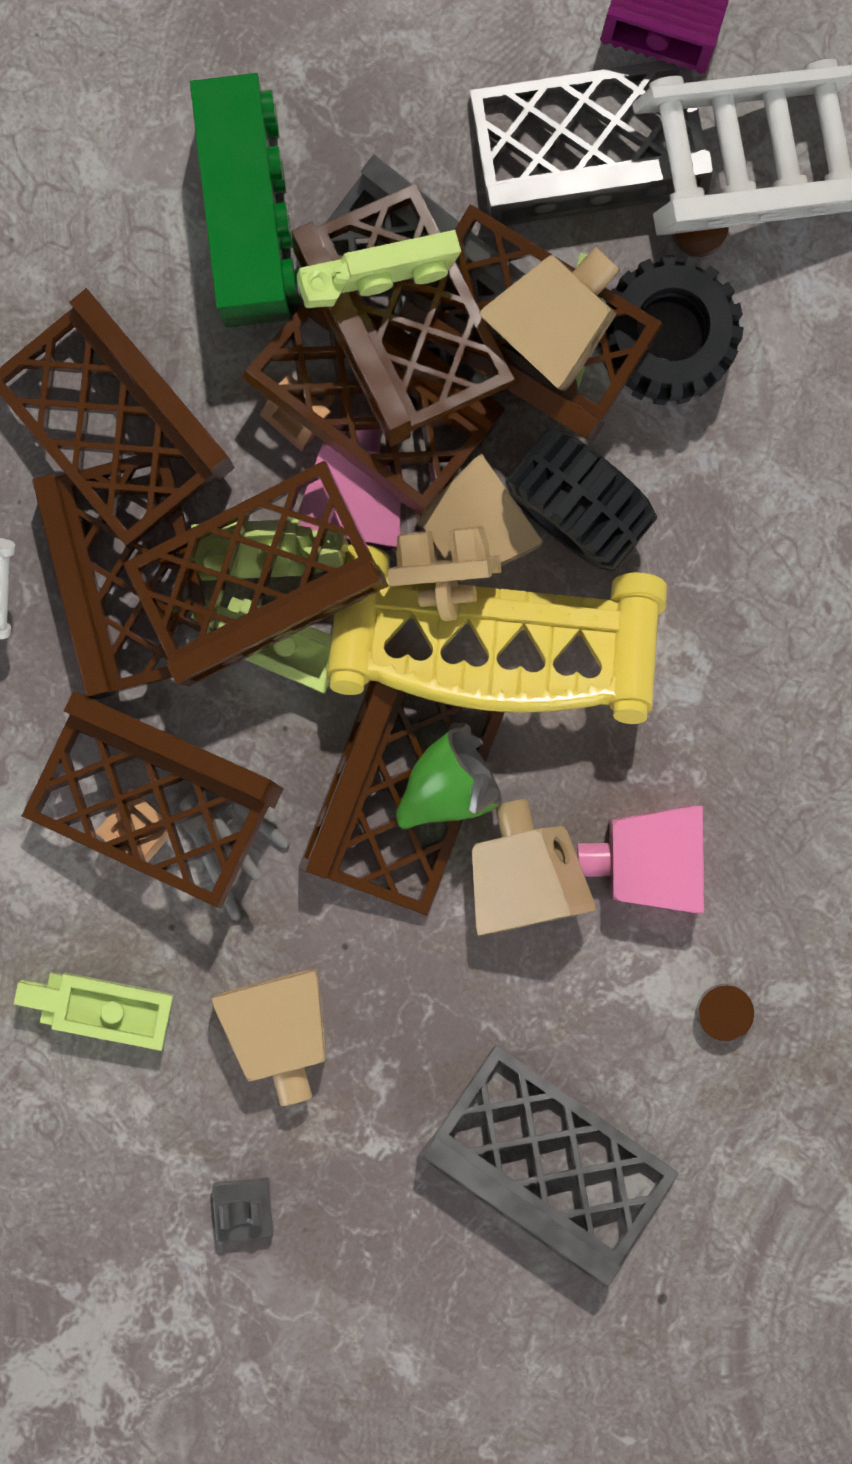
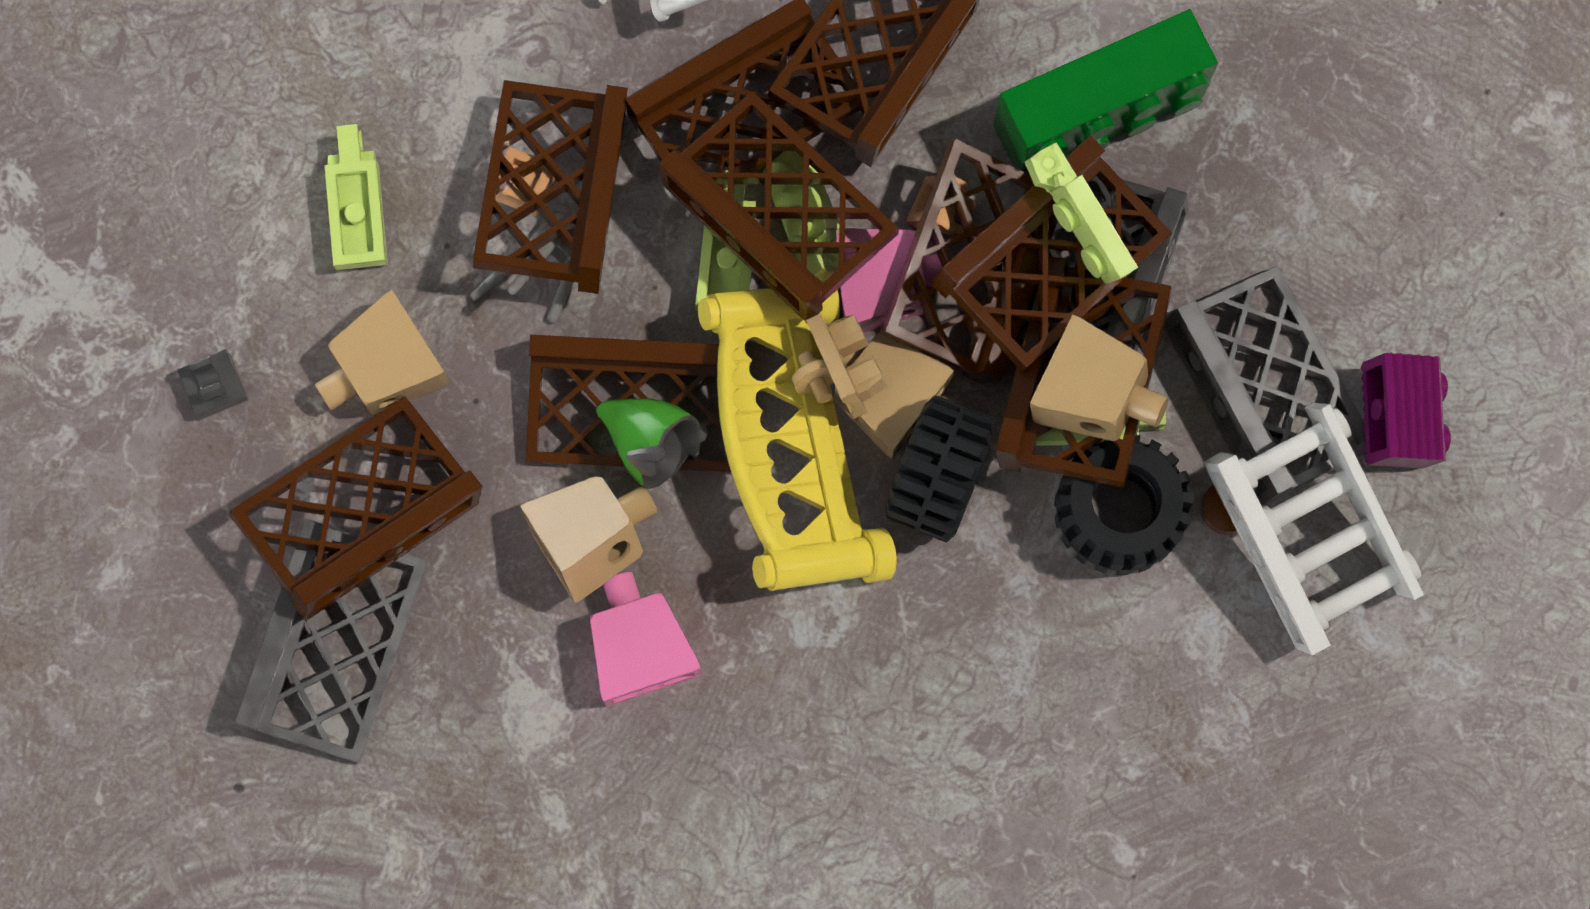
camera: 70 degrees right, 10 degrees down
(471, 1084) = (382, 544): none -> reddish brown fence
(725, 1012) = (519, 758): reddish brown tile -> none

